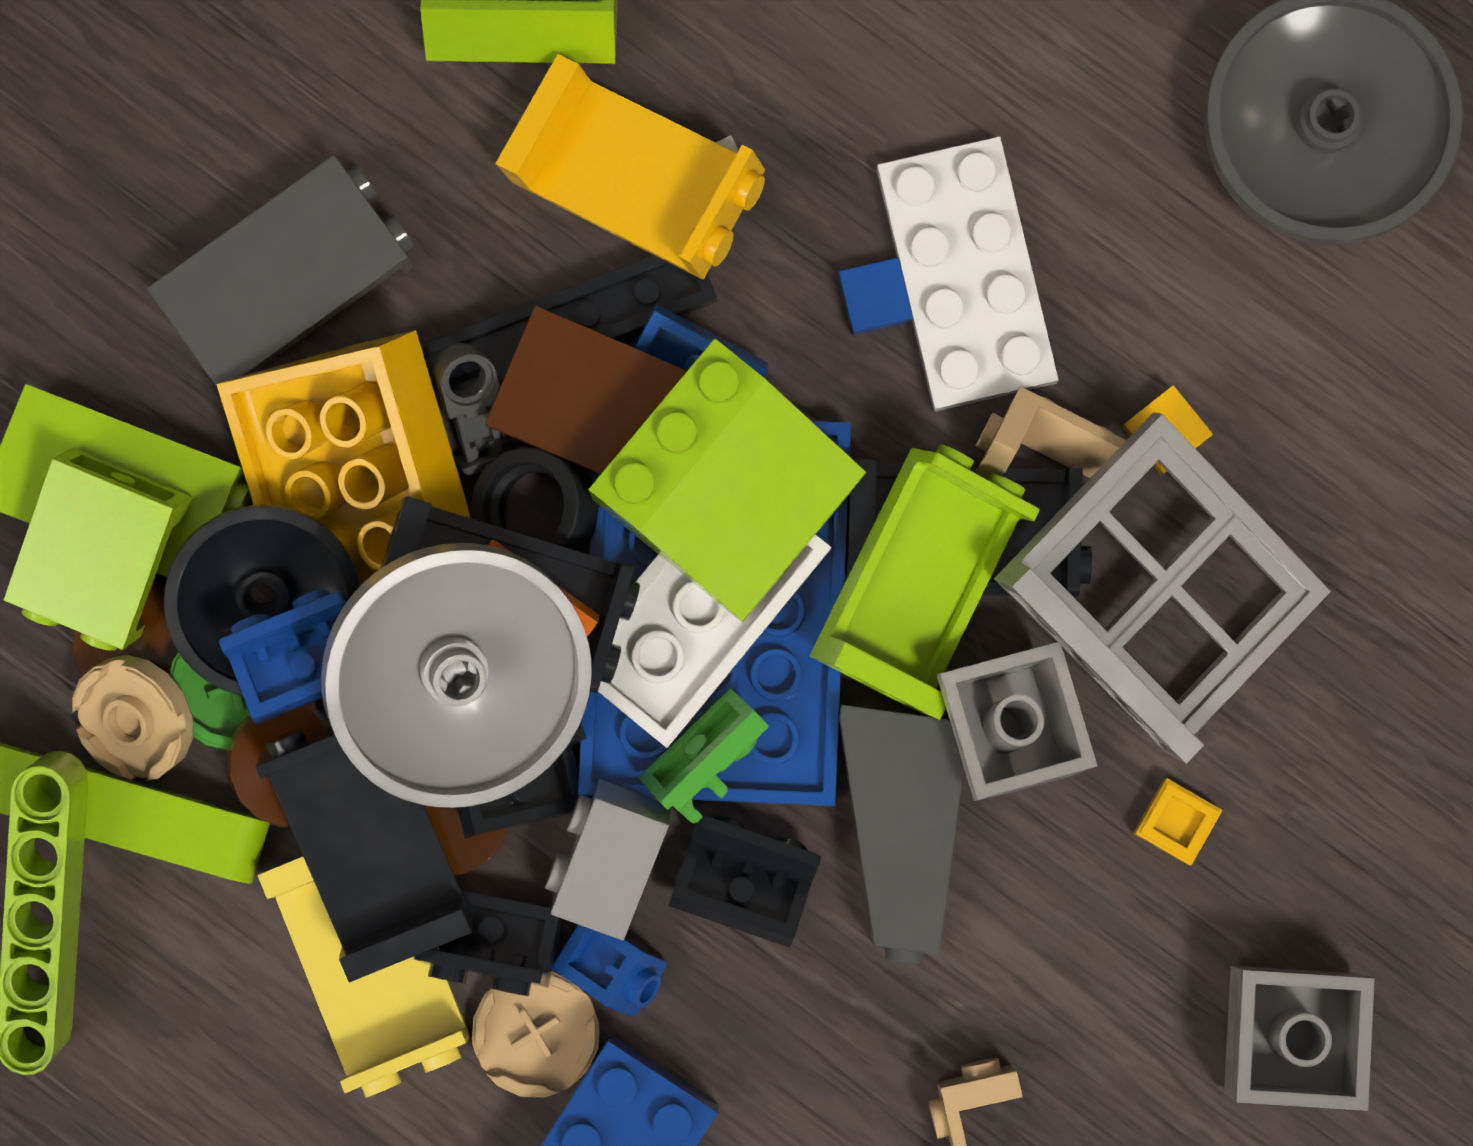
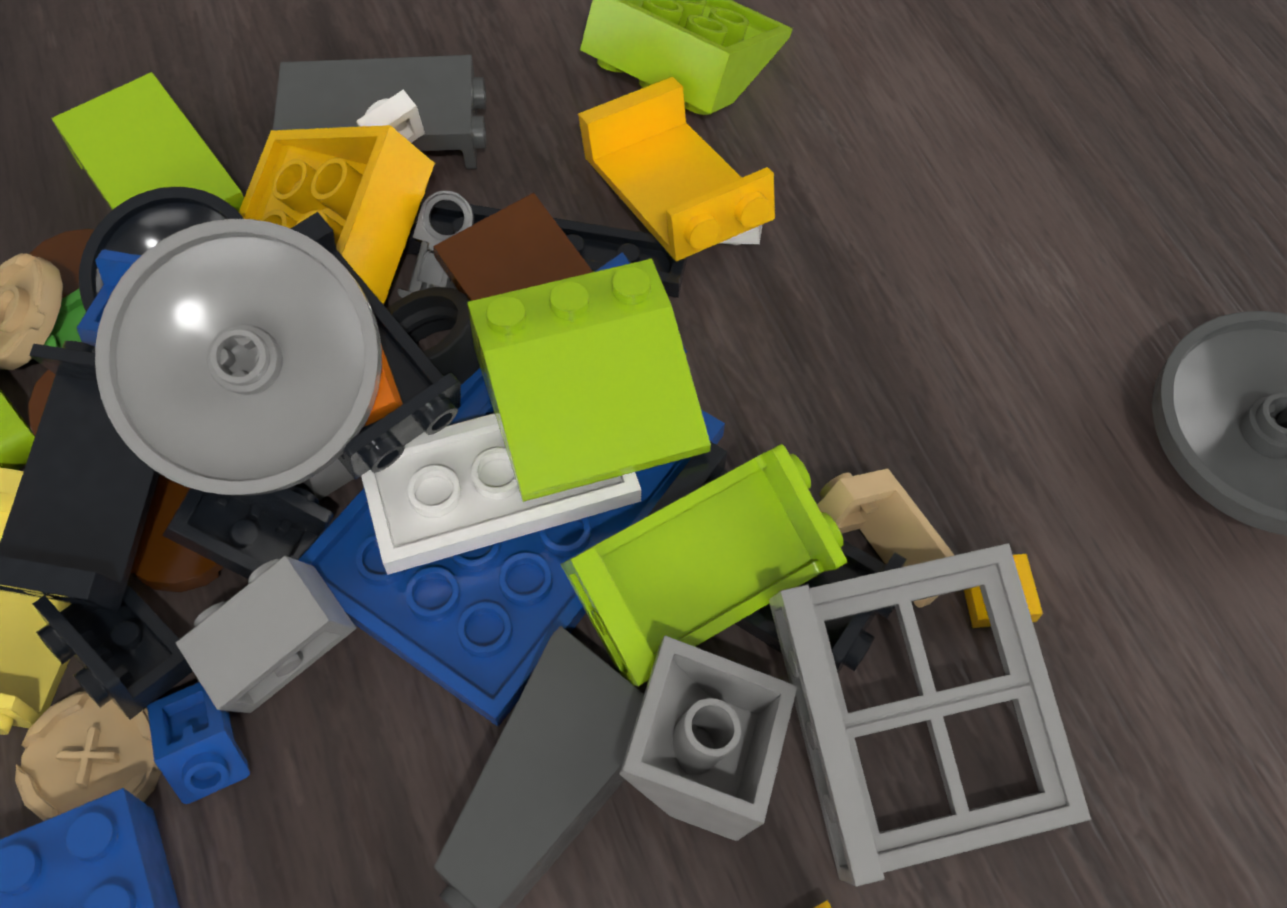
camera: 30 degrees right, 25 degrees down
(94, 549) = (85, 172): lime panel -> none
(337, 313) = (398, 112): none -> white plate
(709, 746) = (440, 586): bright green plate -> none
(745, 879) = (369, 736): black bracket -> none
(875, 296) = (806, 359): blue tile -> none
(967, 274) = (890, 383): white plate -> none

